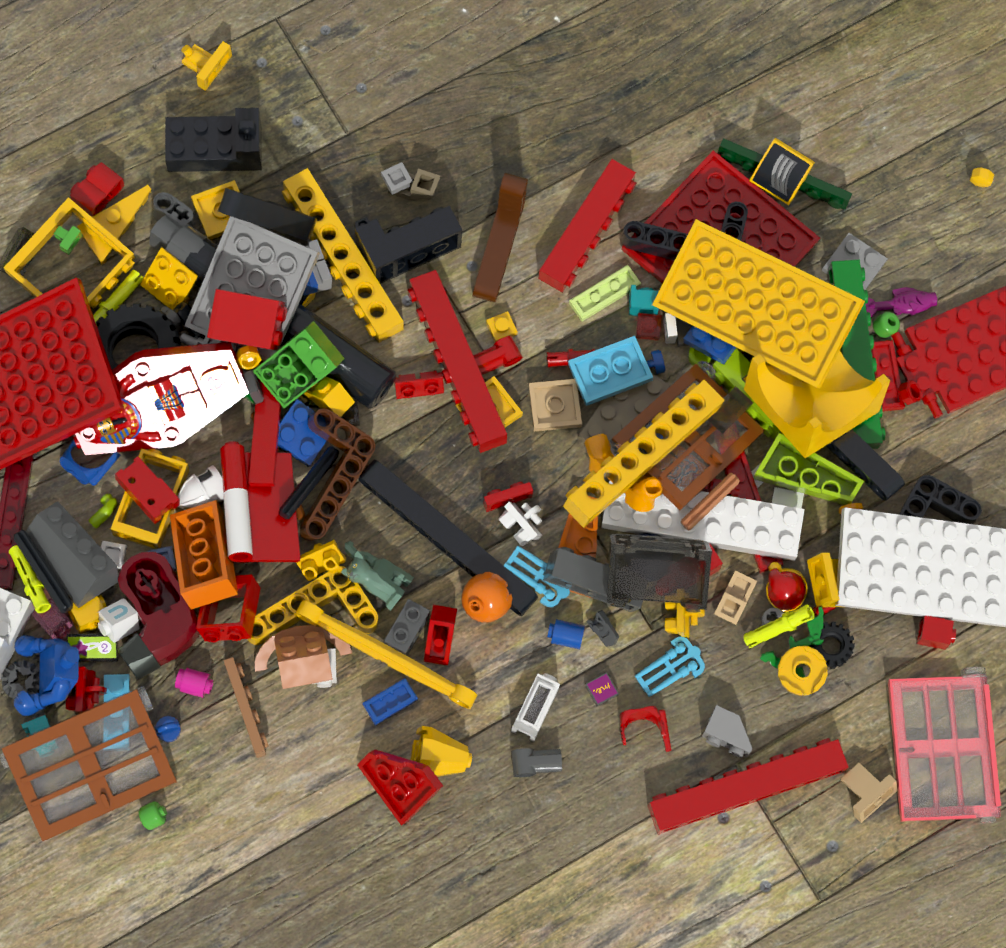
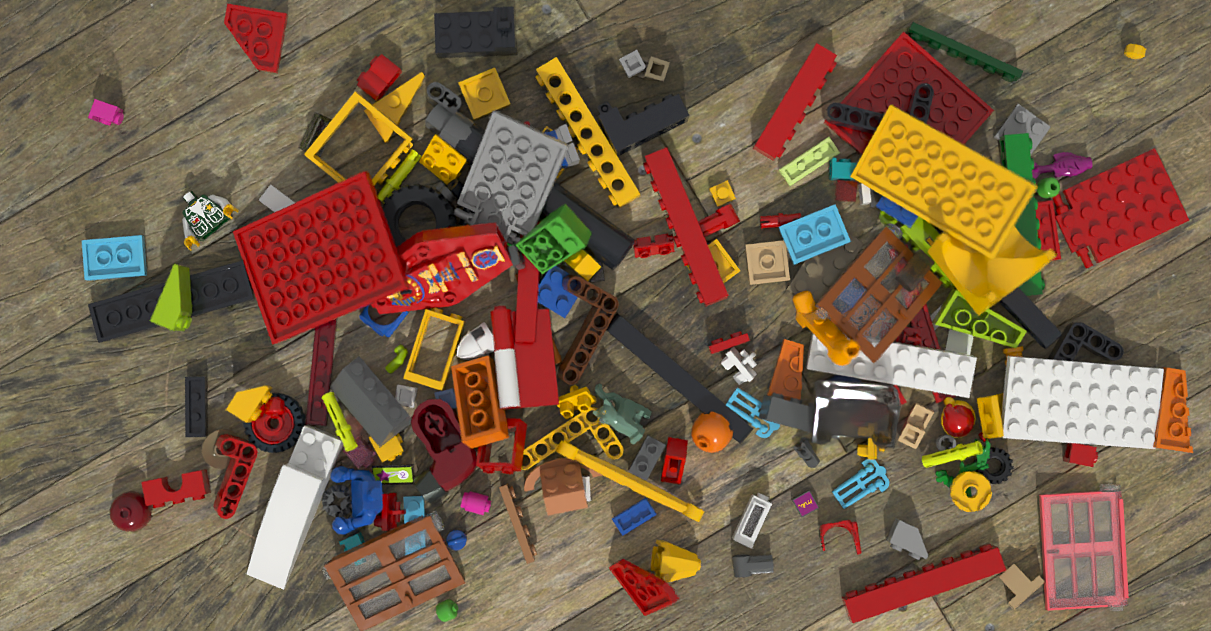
camera: 10 degrees right, 15 degrees up
(43, 571) = (350, 417): black axle -> none
(68, 238) = (356, 129): bright green tile -> none
(118, 620) = (412, 456): white brick -> none
(147, 490) = (432, 347): red piece -> none
(247, 320) = (509, 204): red slope -> none
(248, 357) = (511, 234): yellow tile -> none
(267, 214) = (530, 109): black beam -> none
(308, 482) = (564, 335): black axle -> none
(501, 238) = (721, 118): reddish brown beam -> none
(566, 634) = (776, 459): blue brick -> none
(586, 509) = (897, 271): yellow brick -> none
(657, 362) = (852, 223): blue tile -> none
(710, 501) = (898, 353): nougat axle -> none
(782, 171) = (963, 52): slope -> none
(910, 392) = (1066, 247): red tile -> none

